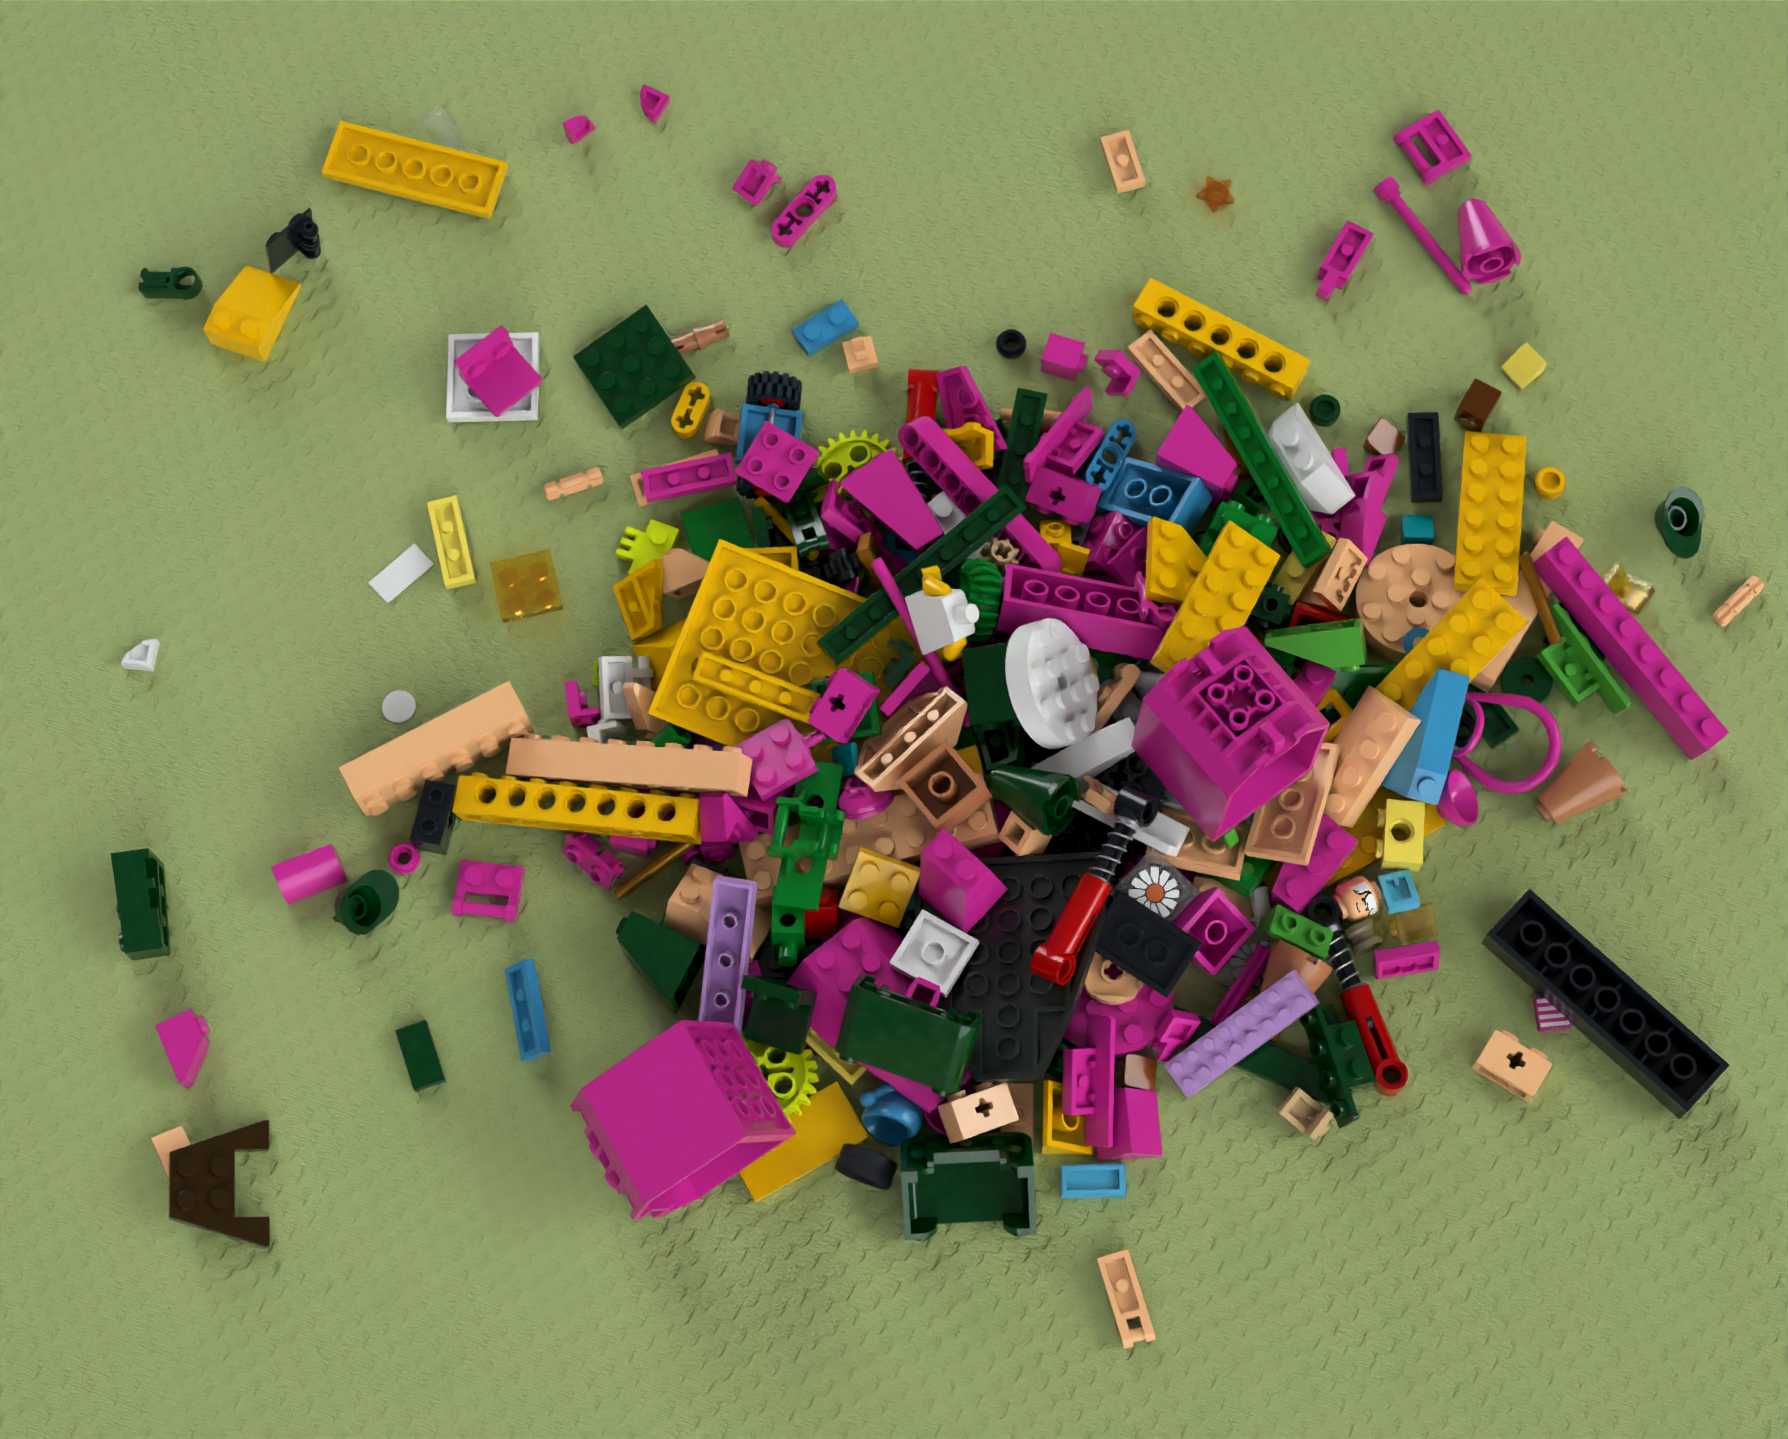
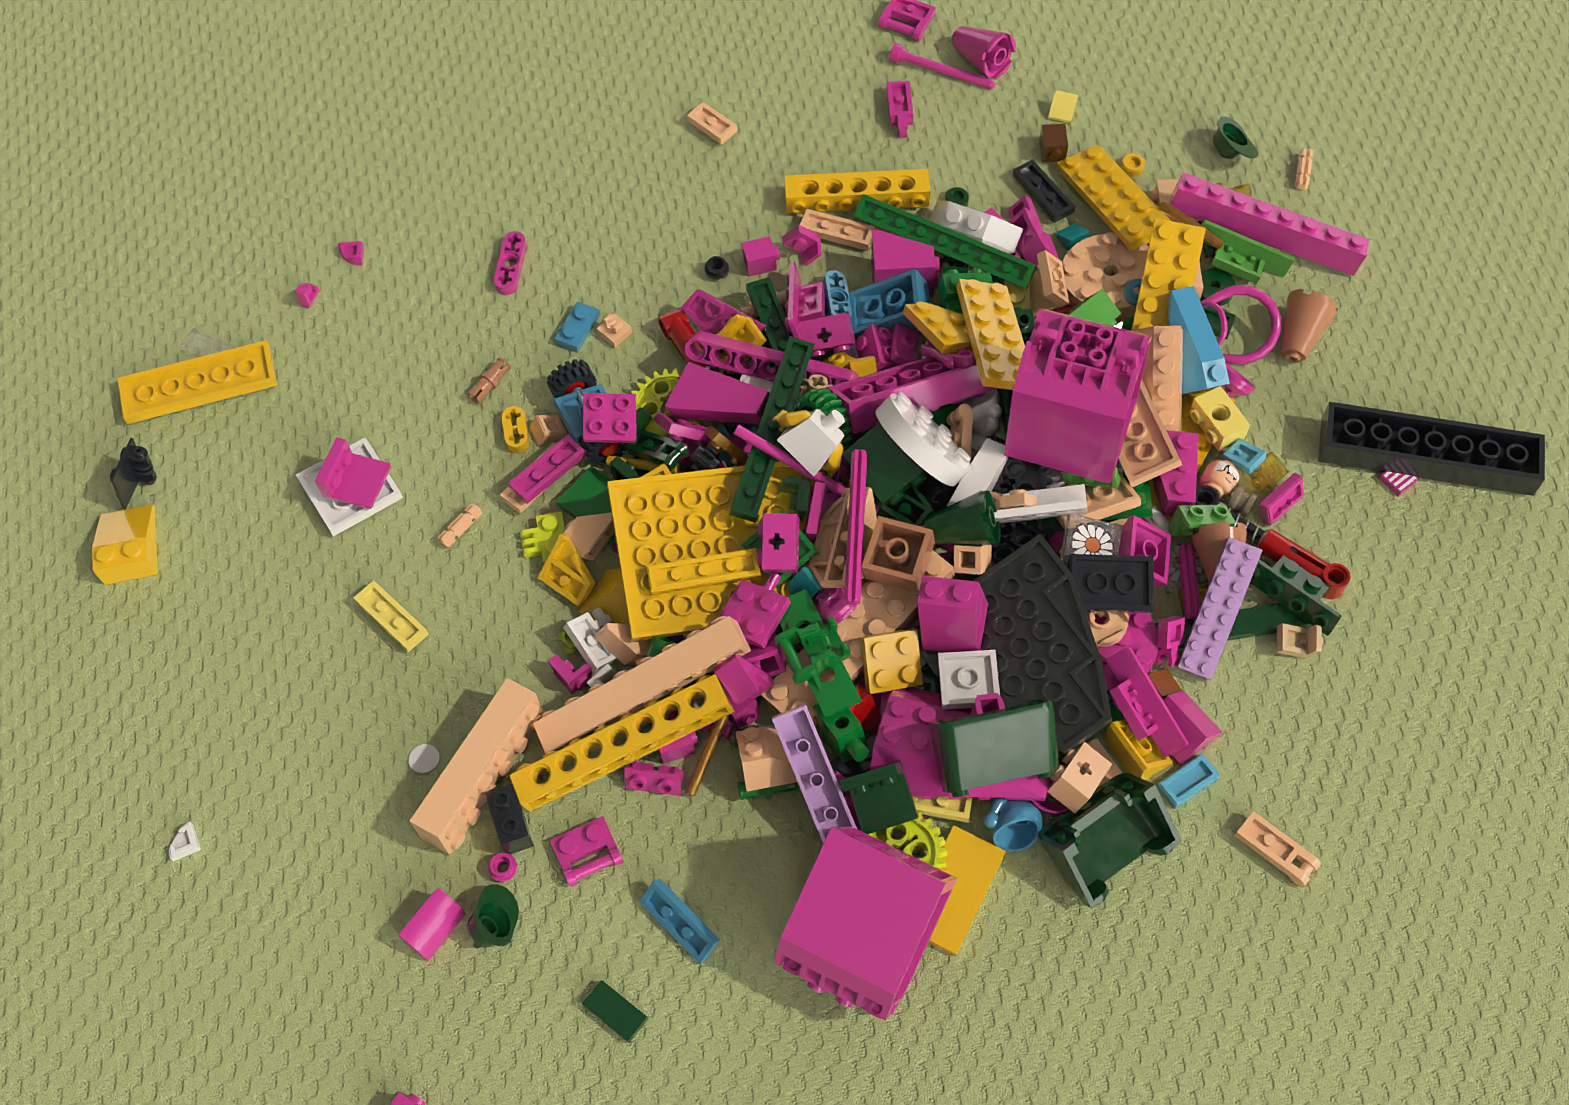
camera: 35 degrees left, 10 degrees down
(141, 903) = (302, 1034): dark green wedge -> none
(166, 284) = (41, 561): dark green piece -> none
(401, 573) = (363, 662): white sticker -> none
(526, 586) = (470, 614): clear yellow plate -> none
(634, 367) = (454, 422): dark green plate -> none
(661, 956) = (757, 814): dark green slope -> none
(756, 180) = (463, 260): dark pink bracket -> none
(866, 1166) = (1023, 871): black tyre -> none
(920, 735) = (855, 527): none -> dark pink axle
(1056, 957) = (1064, 621): piece -> none
(1216, 201) = (788, 117): clear orange plate -> none
(1383, 439) = (1008, 194): slope -> none
(1495, 1063) = (1404, 525): light nougat brick -> none

